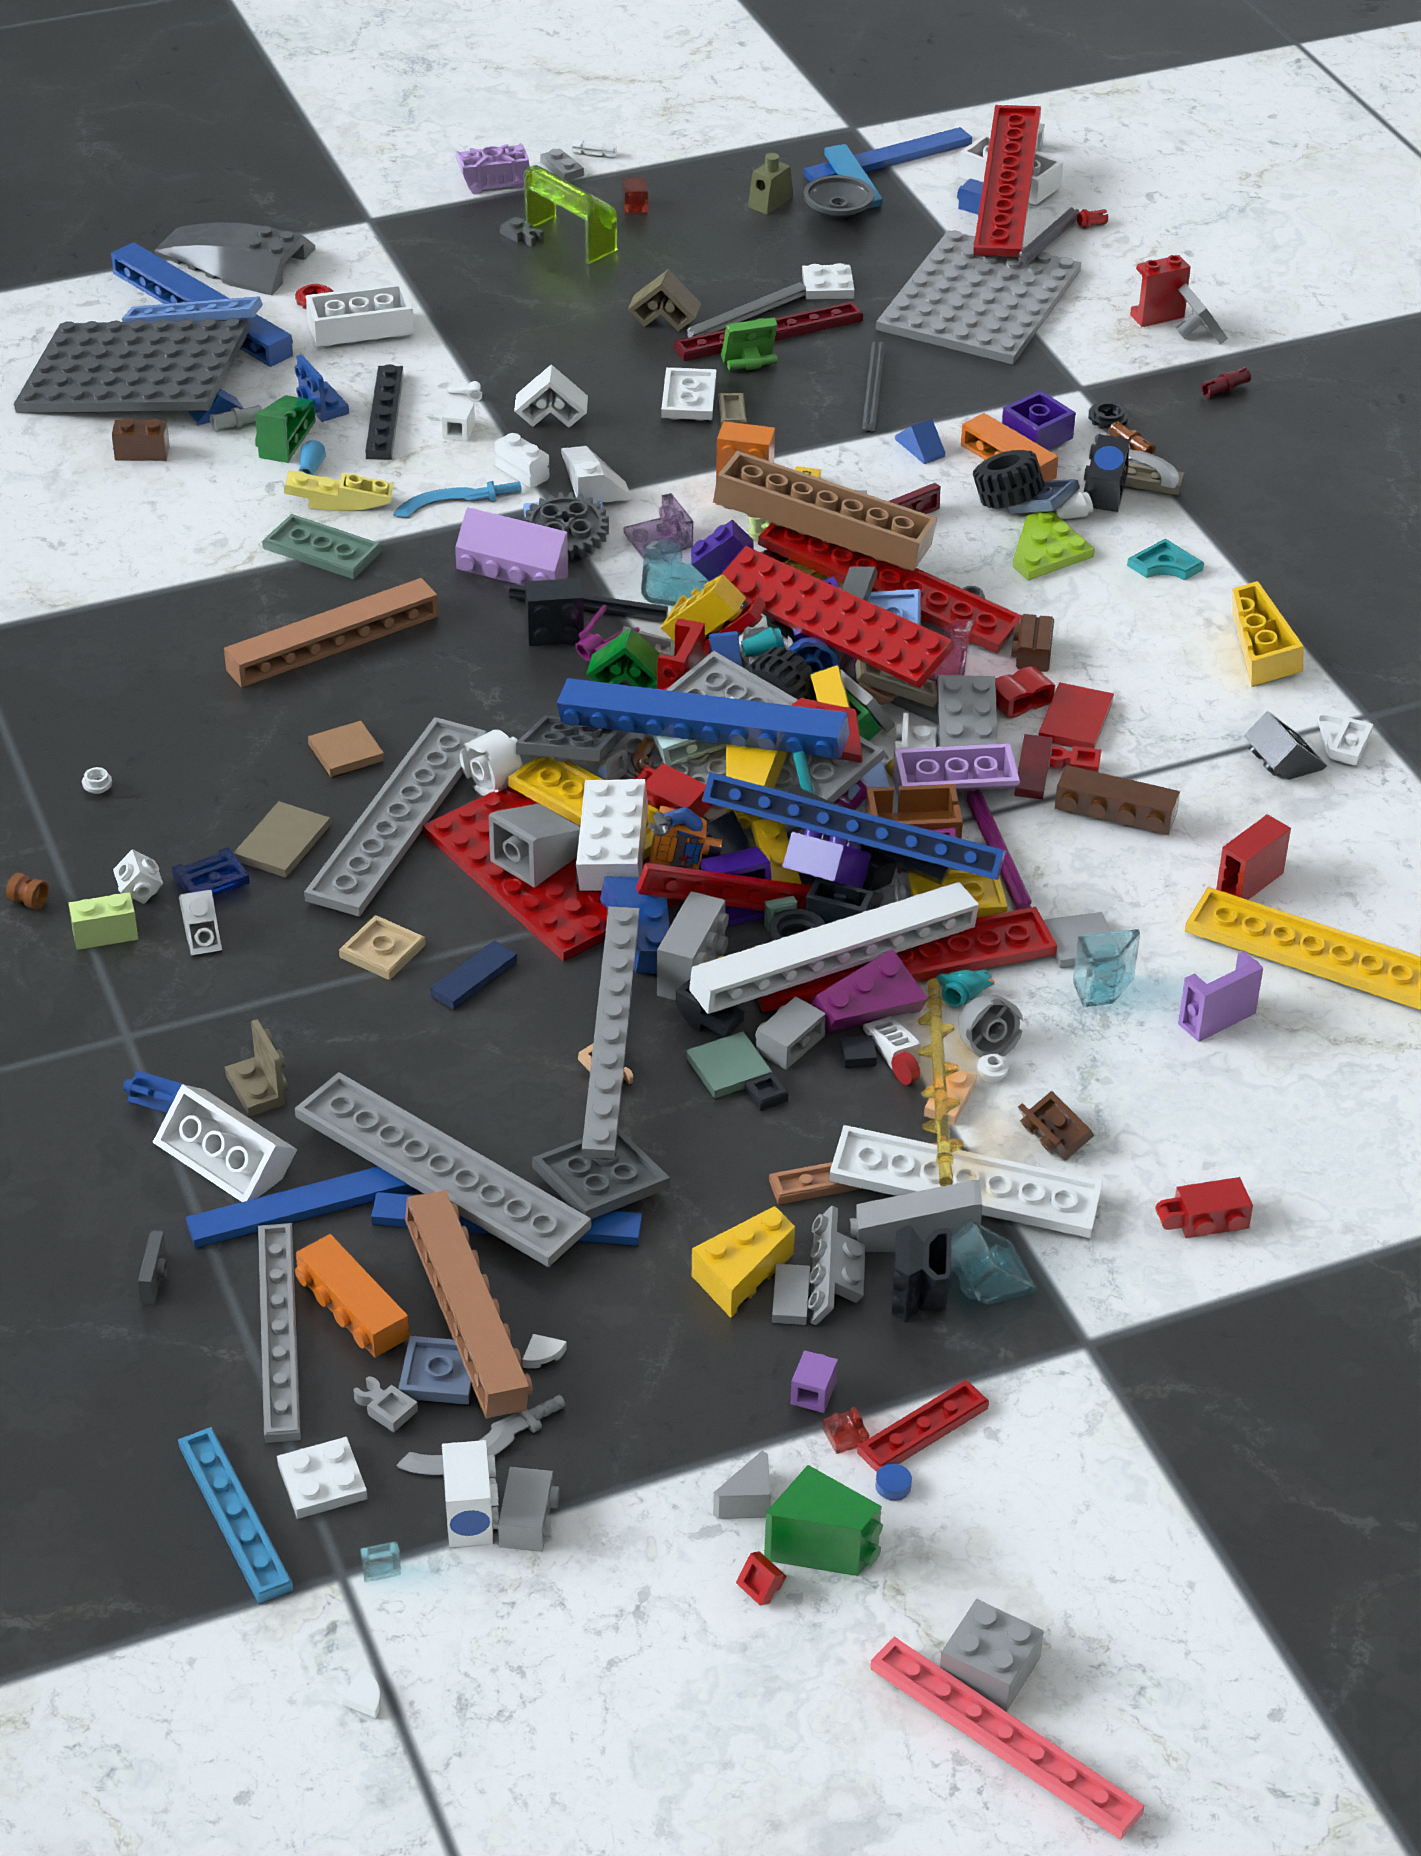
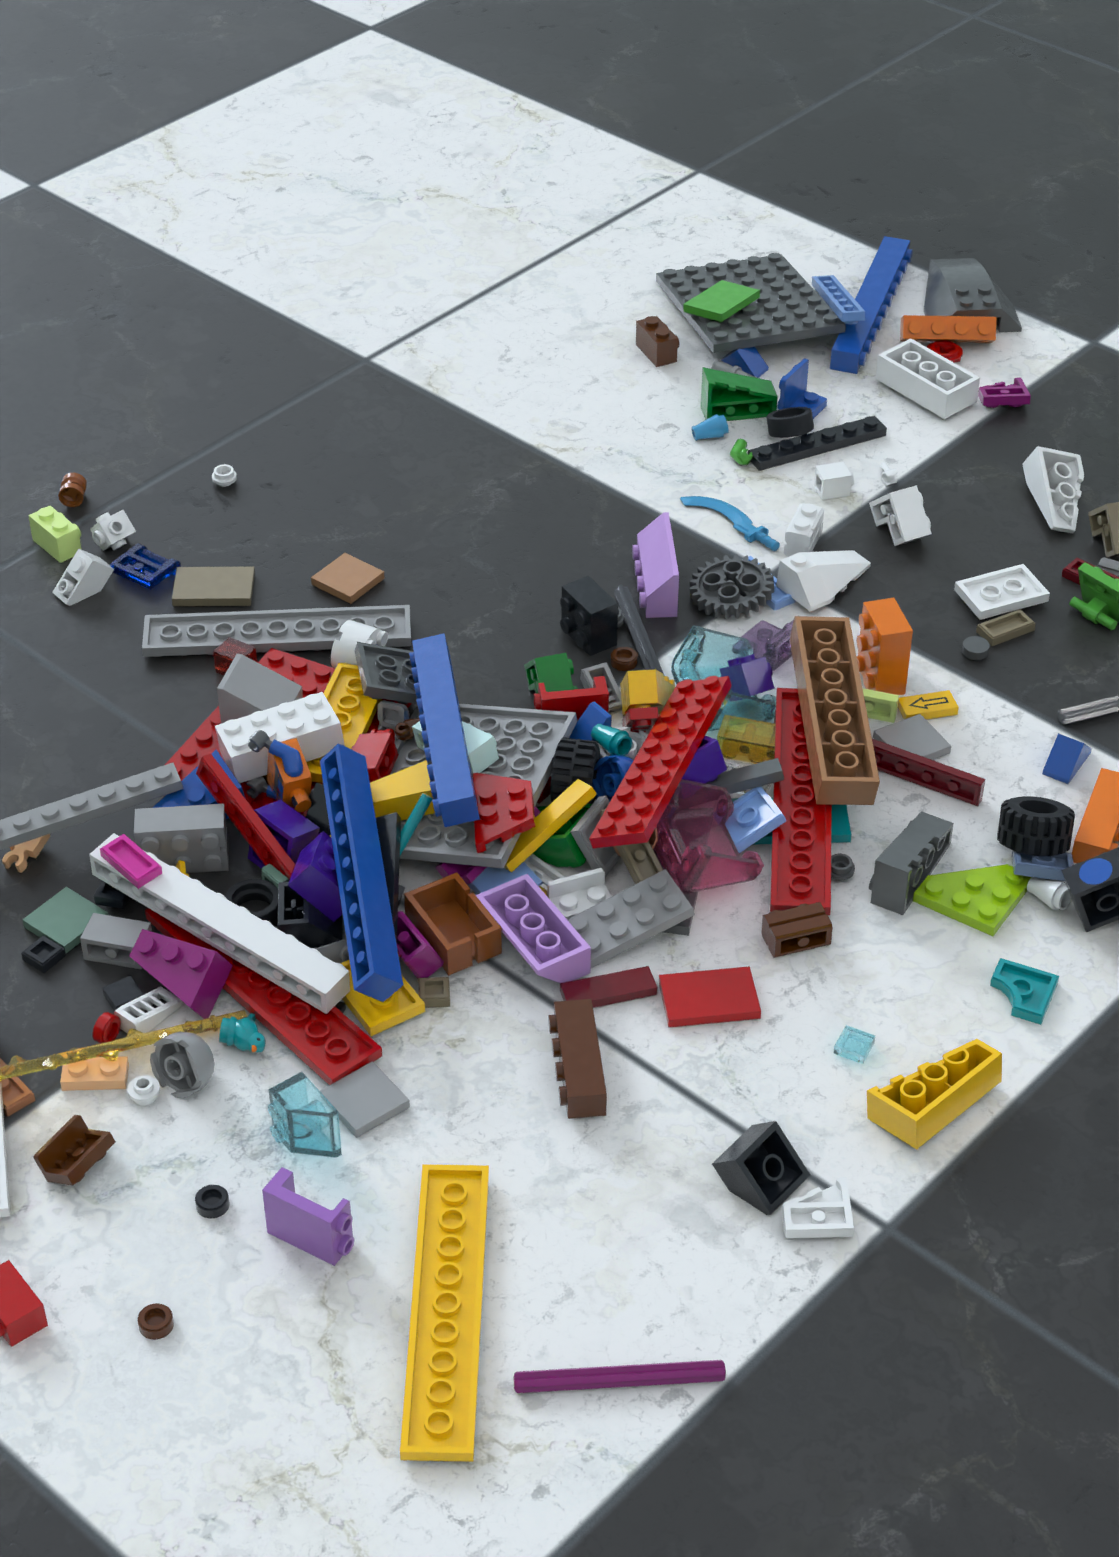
camera: 65 degrees right, 0 degrees up
(137, 372) = (721, 301): none -> bright green tile
(293, 276) = (949, 328): none -> orange brick
(322, 546) = (604, 476): sand green tile -> none
(330, 632) = (487, 517): nougat brick -> none
(344, 495) = (673, 455): light yellow slope -> none
(354, 409) = (790, 422): none -> black tyre
(355, 457) = (739, 452): none -> bright green arm
(382, 947) = (113, 681): tan tile -> none
(416, 285) = (999, 394): none -> magenta wing
(426, 851) = (227, 651): none -> brick
(473, 974) = (105, 739): dark blue tile -> none
(562, 309) = (1055, 485): none -> white wedge
(593, 642) = (576, 654): magenta plant -> none
(609, 623) = (624, 658): none -> reddish brown tile
(743, 964) = (131, 861): none -> dark pink tile
(993, 838) = (457, 1004): magenta axle -> none
(1000, 557) = (909, 861): none -> dark grey wedge
(1023, 691) = (709, 942): red brick -> none
(1079, 757) = (634, 1017): red plate -> none
(1149, 1061) = (212, 1201): none -> black tile
(1175, 662) = (854, 1044): none -> clear light blue tile
(1254, 858) = (539, 1184): red brick -> none
(1269, 1129) = (155, 1321): none -> reddish brown tile

